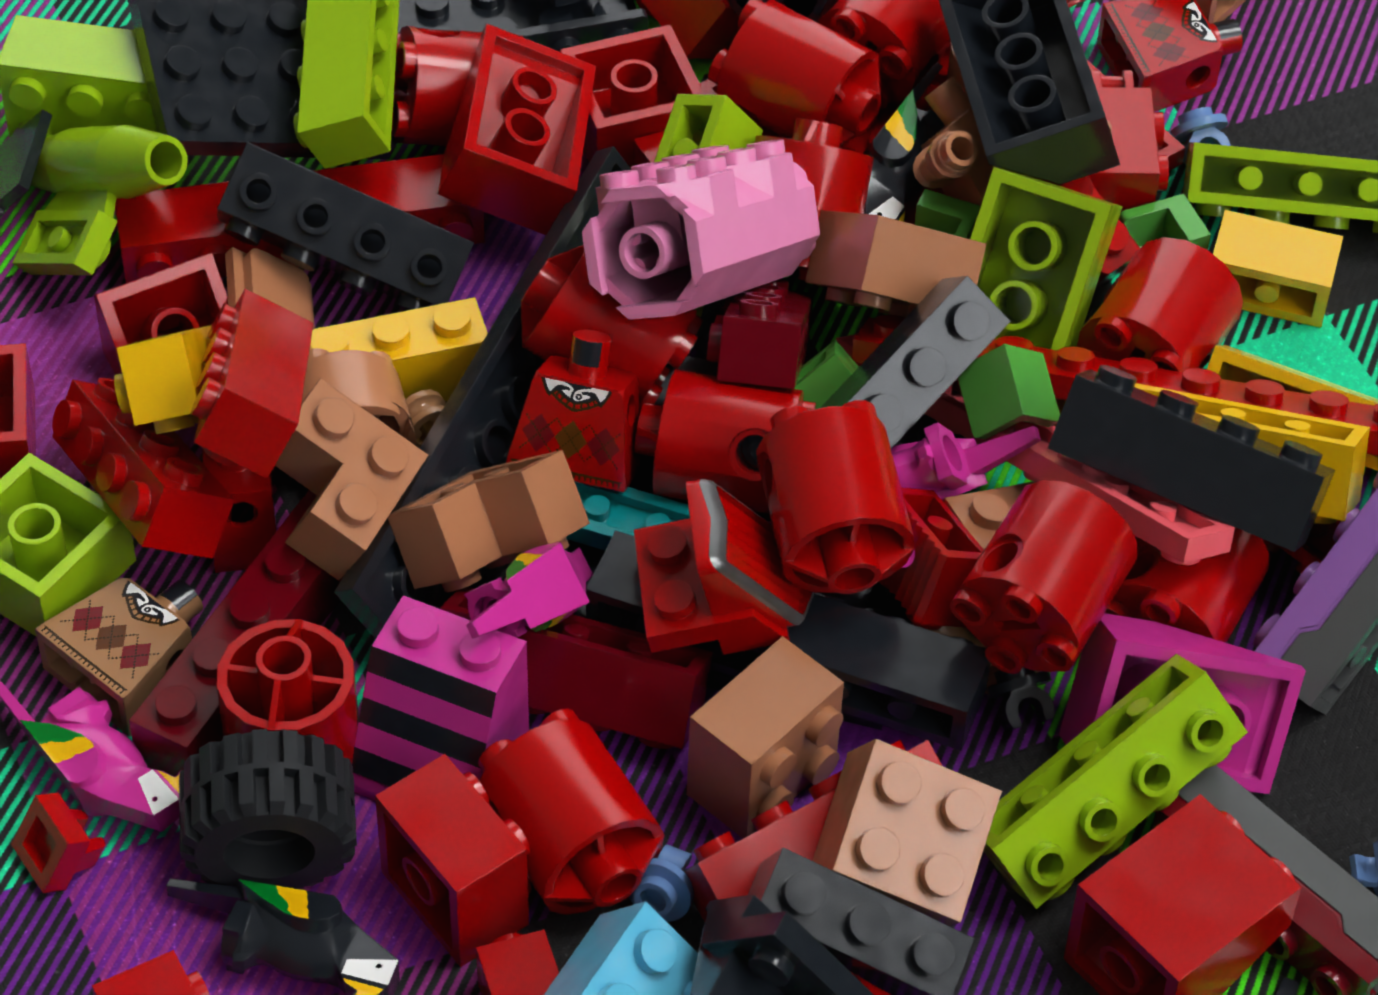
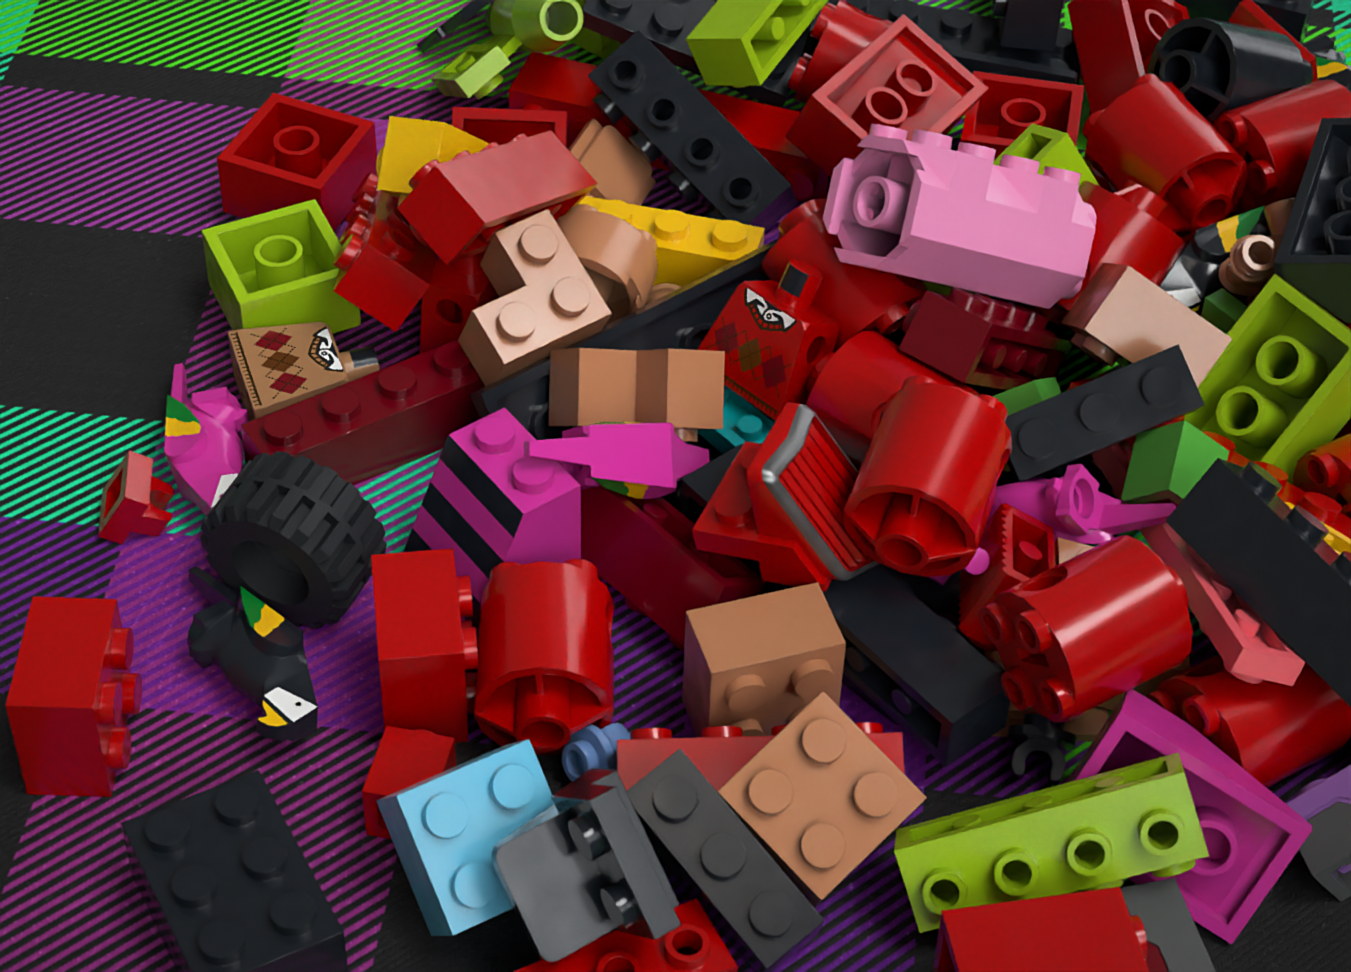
camera: 30 degrees right, 5 degrees down
(289, 680) = (380, 445): red cylinder -> none

